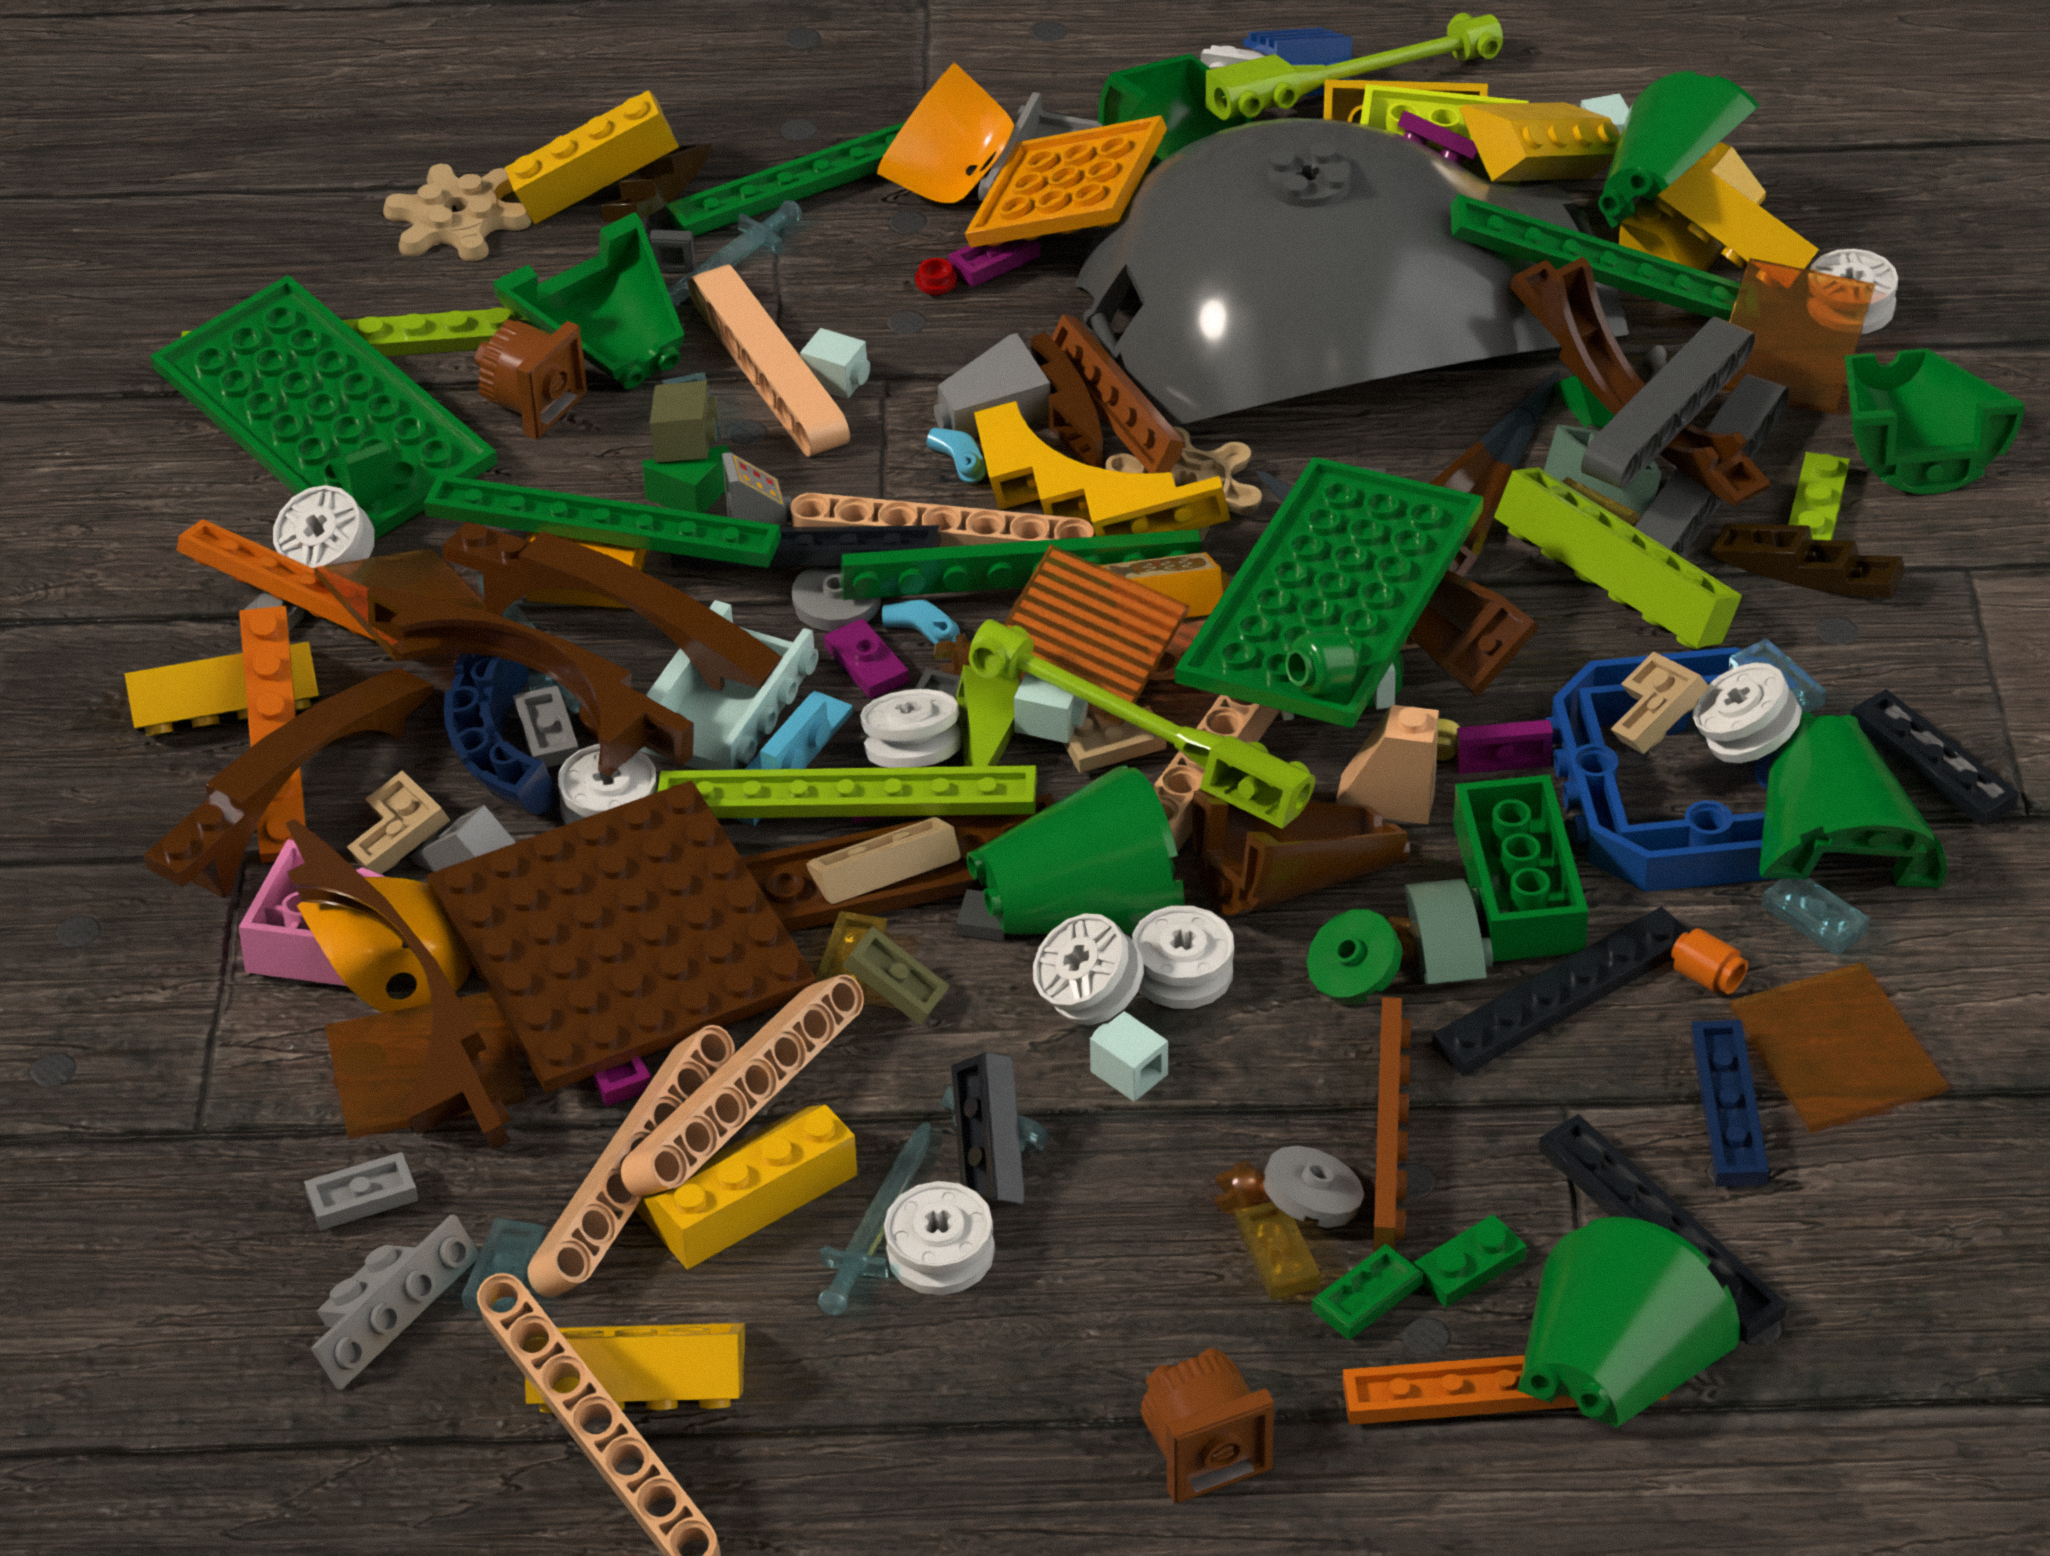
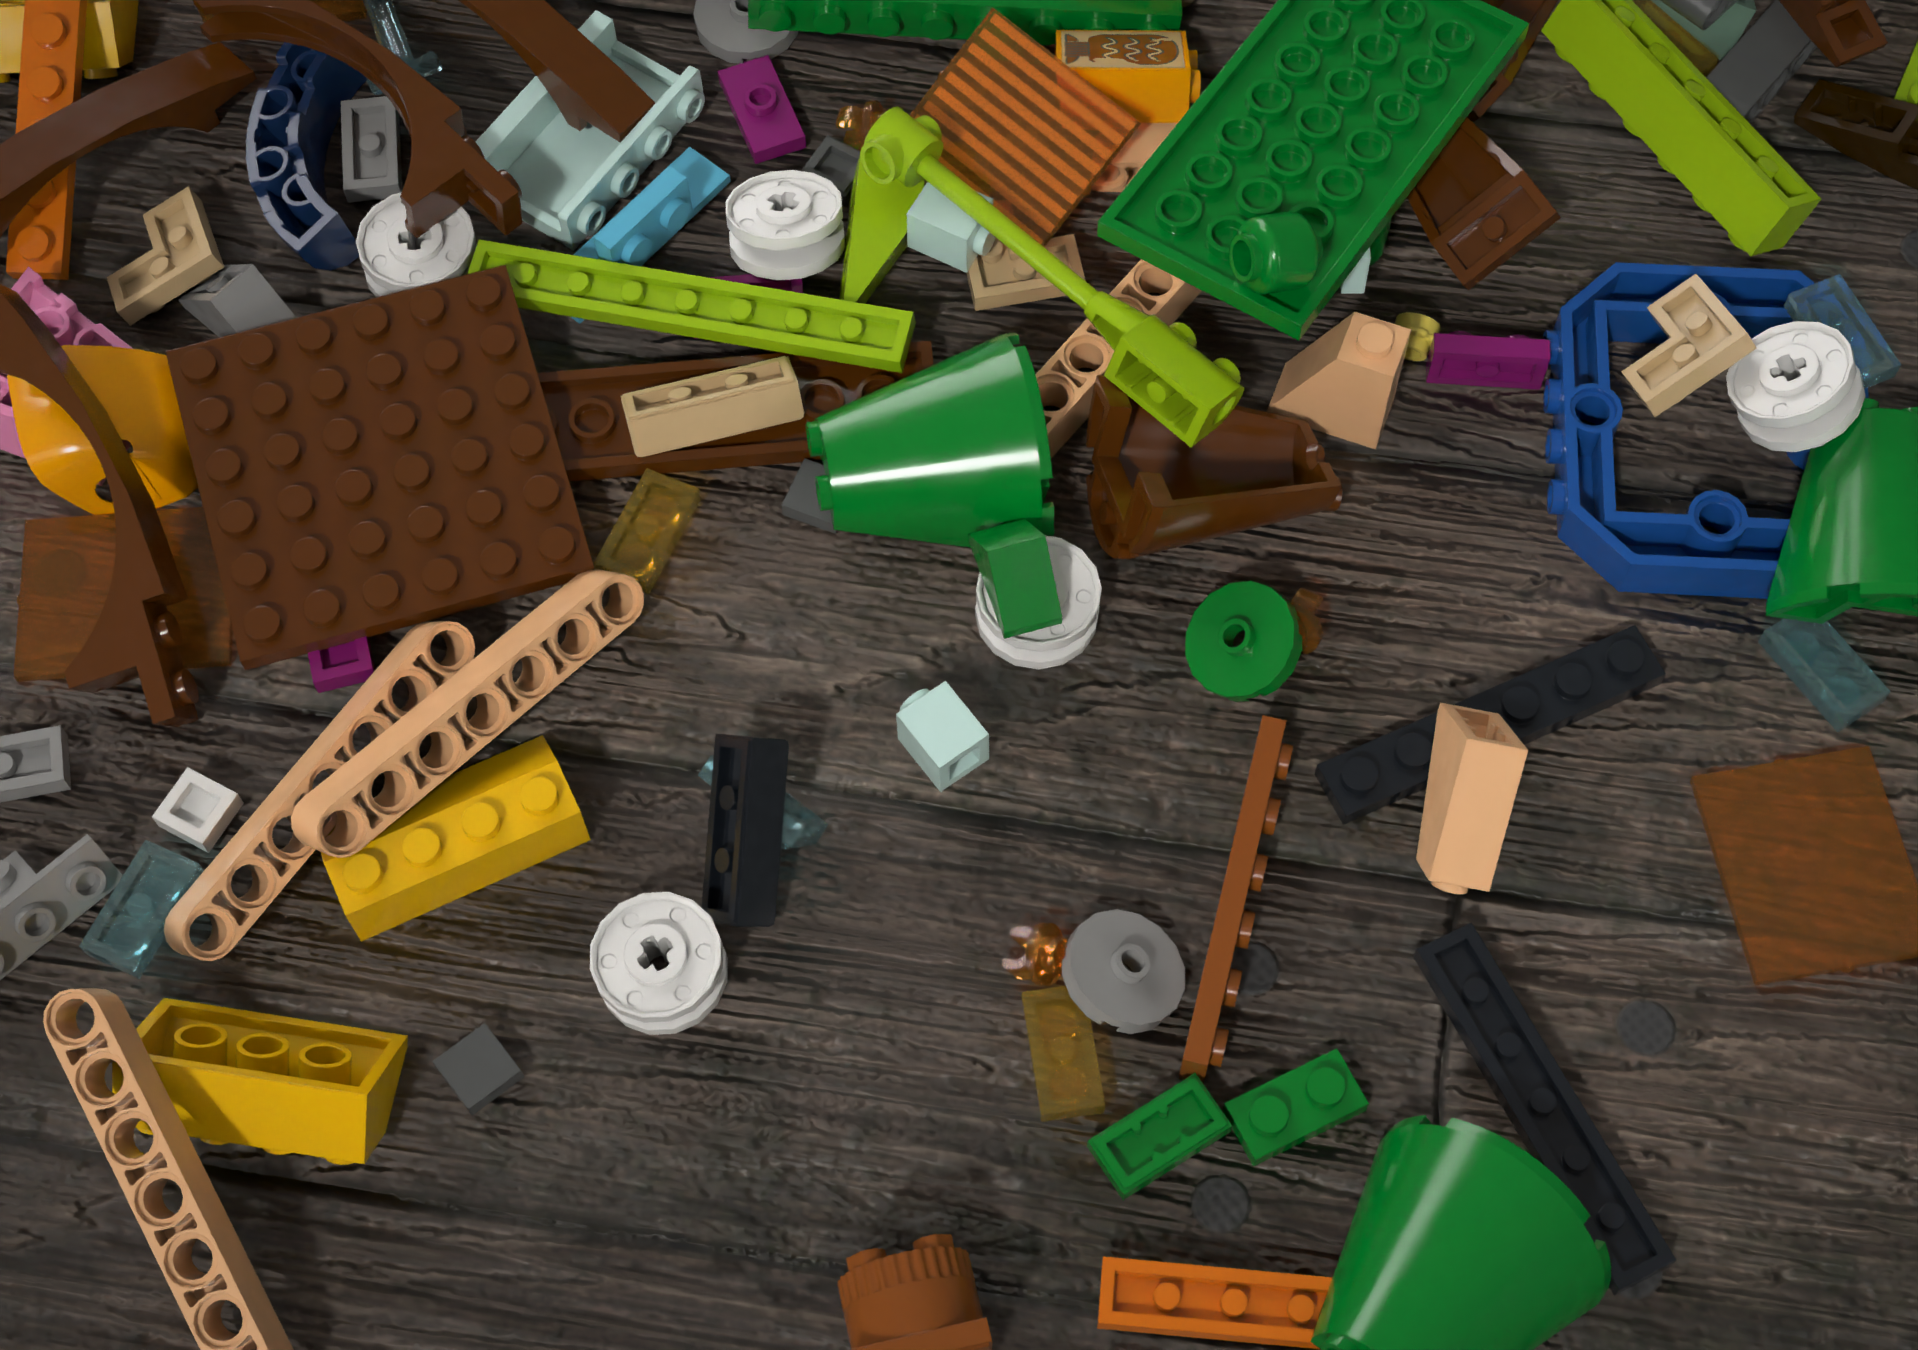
camera: 10 degrees right, 20 degrees up
(531, 1194) = (198, 809): none -> white plate
(809, 1334) = (478, 1069): none -> dark grey tile
(859, 1253) = (573, 946): clear light blue sword -> none
(896, 975) = (689, 575): olive plate -> none
(921, 617) = (840, 65): medium azure arm -> none
(1088, 969) = (917, 609): white wheel -> none
(1166, 930) = (1017, 576): none -> green slope
(1447, 931) = (1364, 624): sand green brick -> none
(1521, 867) = (1471, 548): green brick -> none
(1556, 1028) = (1468, 798): none -> light nougat slope
(1709, 961) = (1677, 719): orange brick -> none
(1729, 1103) = (1661, 934): dark blue plate -> none

